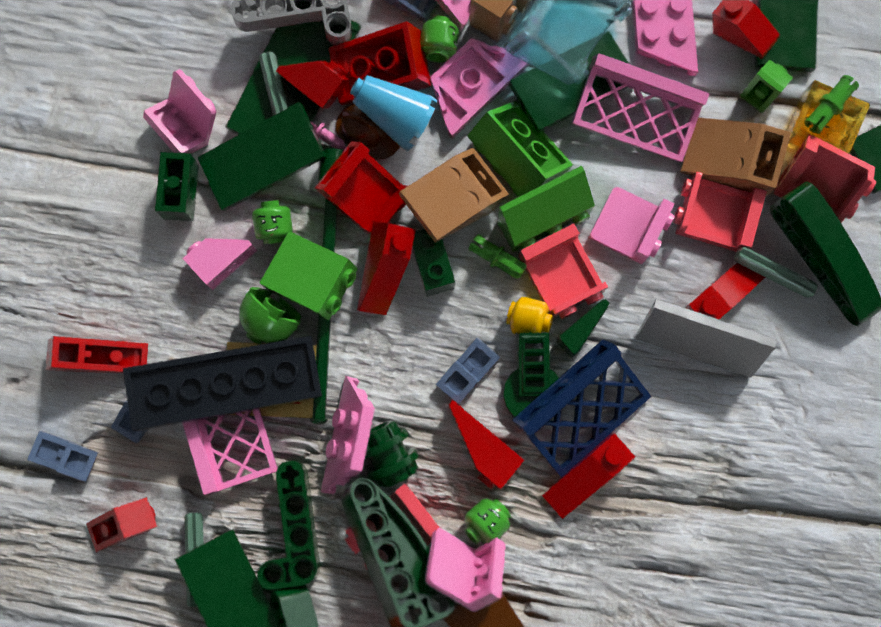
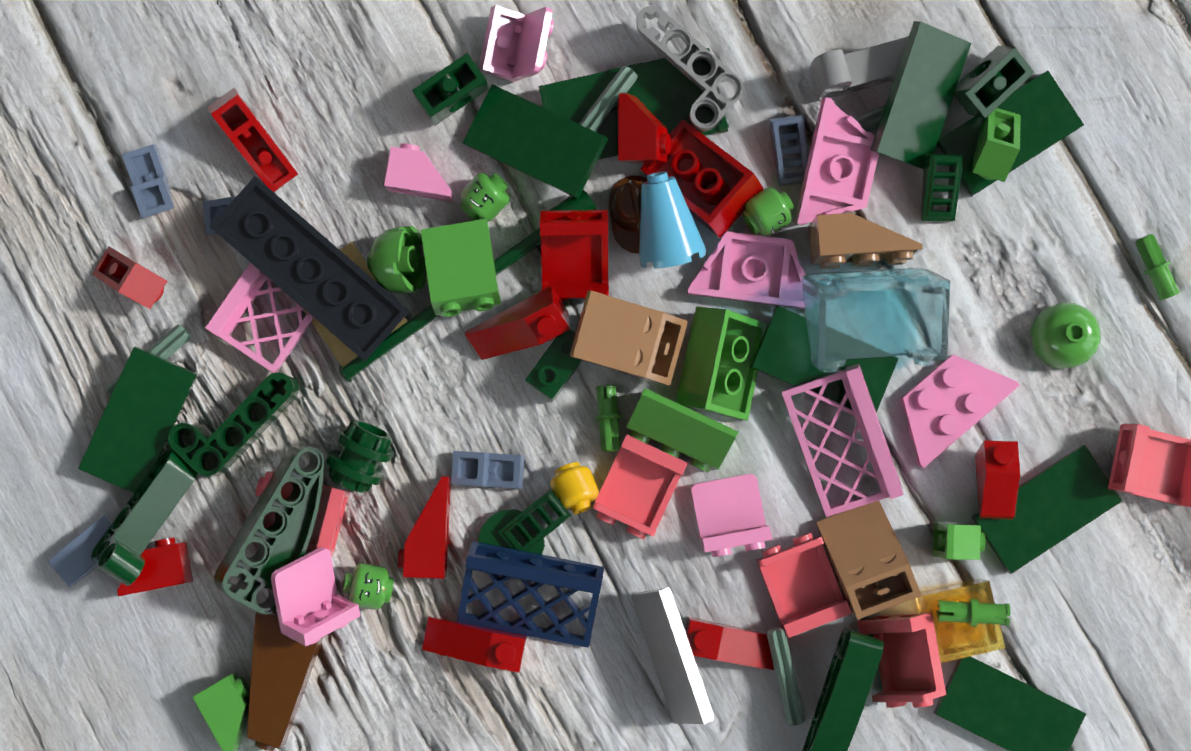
camera: 50 degrees right, 5 degrees up
(328, 137) = (601, 183): bright pink piece -> none
(350, 436) = (350, 412): bright pink wing -> none
(576, 335) = (596, 541): dark green slope -> none

